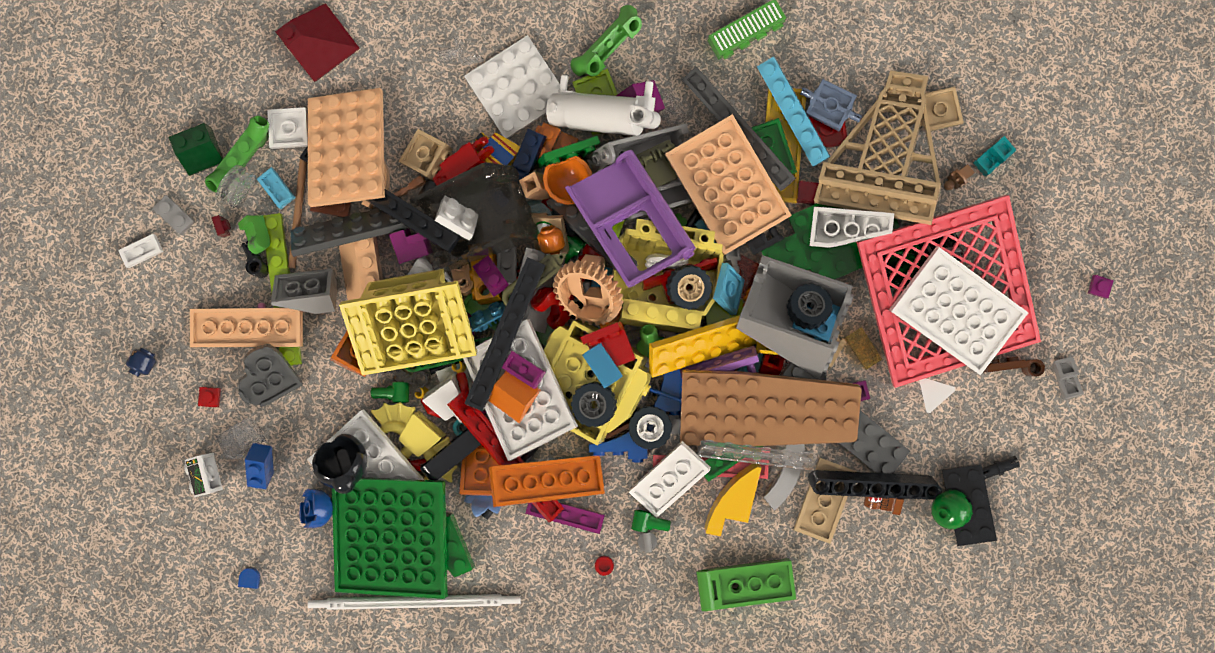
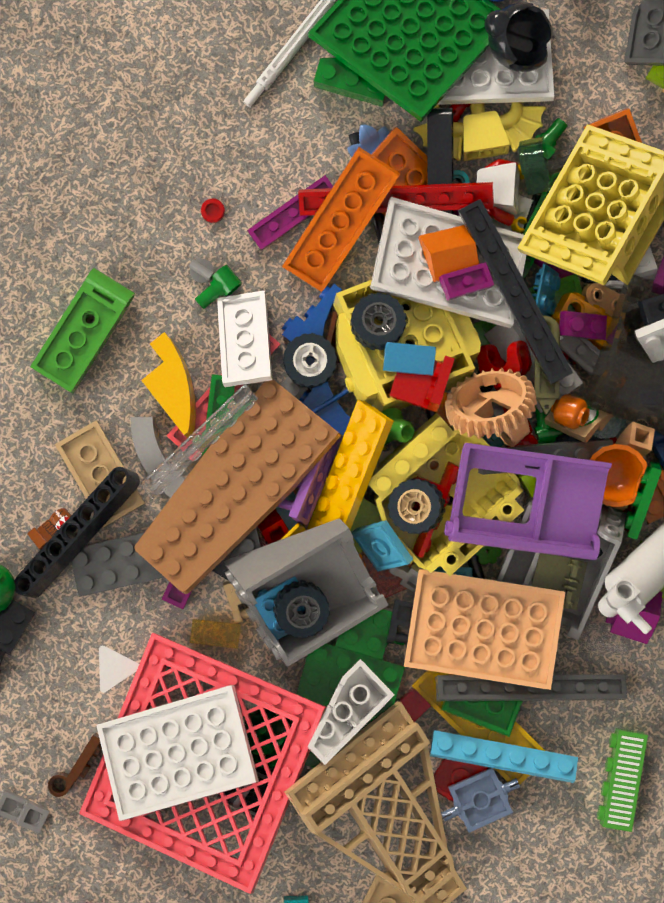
camera: 130 degrees right, 0 degrees up
(414, 388) = (534, 166): none -> clear green brick
(655, 258) = (470, 499): white arm -> none
(958, 177) = (305, 866): medium nougat piece -> none

